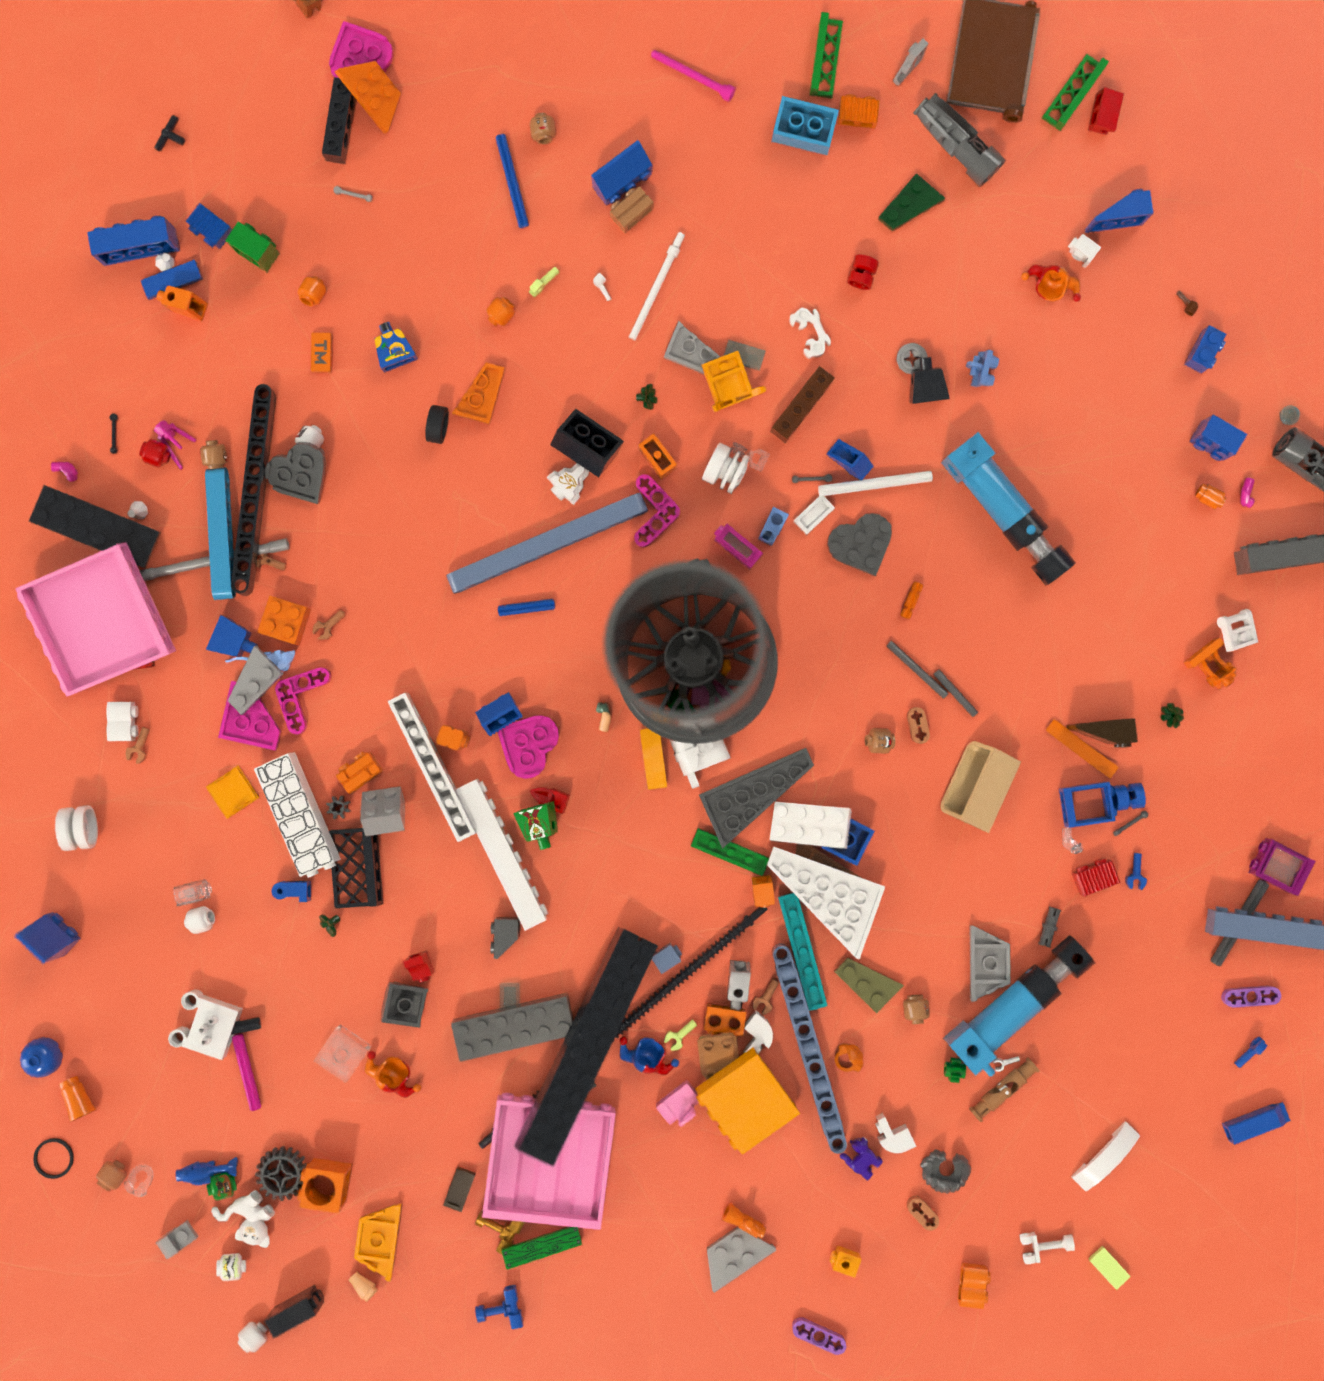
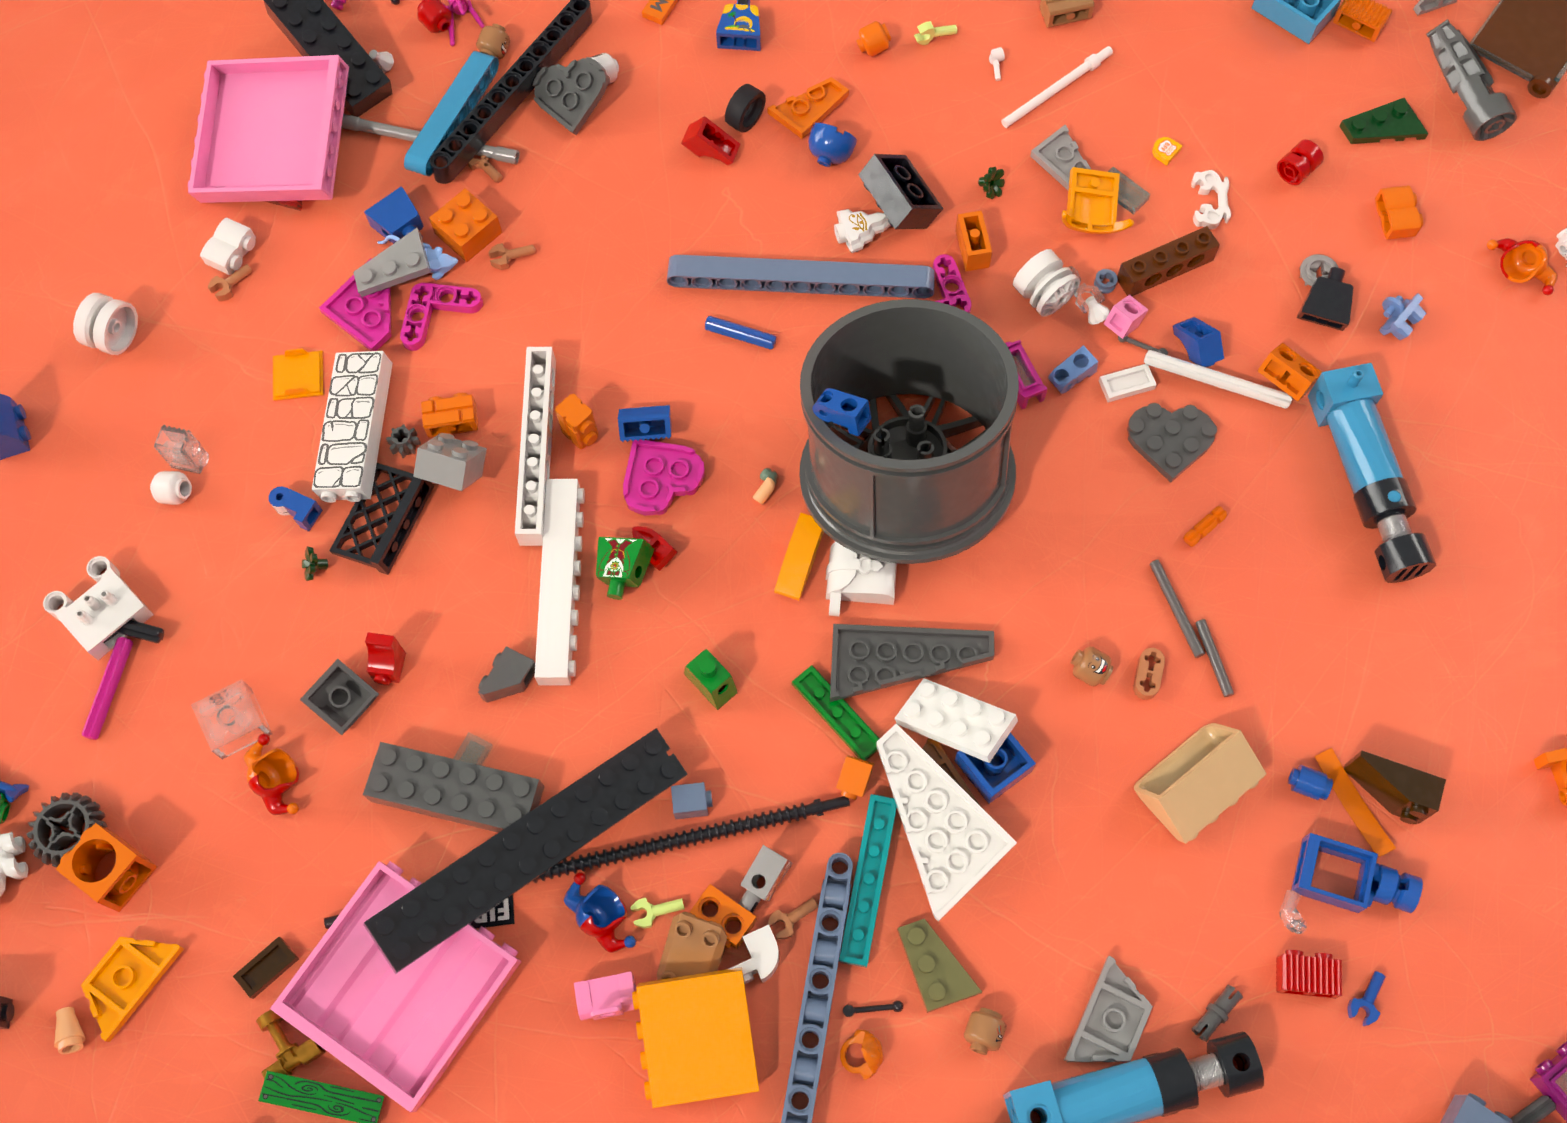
camera: 25 degrees right, 20 degrees down
(425, 463) = (709, 140): none -> red arch
(515, 424) = (830, 145): none -> blue cylinder
(637, 872) = (709, 677): none -> green torso
(653, 690) = (843, 410): none -> blue leg
(759, 304) = (1166, 149): none -> yellow tile
(768, 443) = (1101, 275): none -> sand blue bush
(770, 470) = (1096, 311): none -> white rock
(789, 471) = (1125, 316): none -> bright pink brick
(828, 1035) = (849, 1011): none -> black hinge
(923, 455) = (1289, 371): none -> orange brick
(949, 280) = (1398, 212): none -> orange brick
(1050, 751) = (1310, 782): none -> blue brick
(1144, 814) = (1408, 927): dark grey hinge -> none
(1172, 714) = (1495, 813): dark green plant -> none

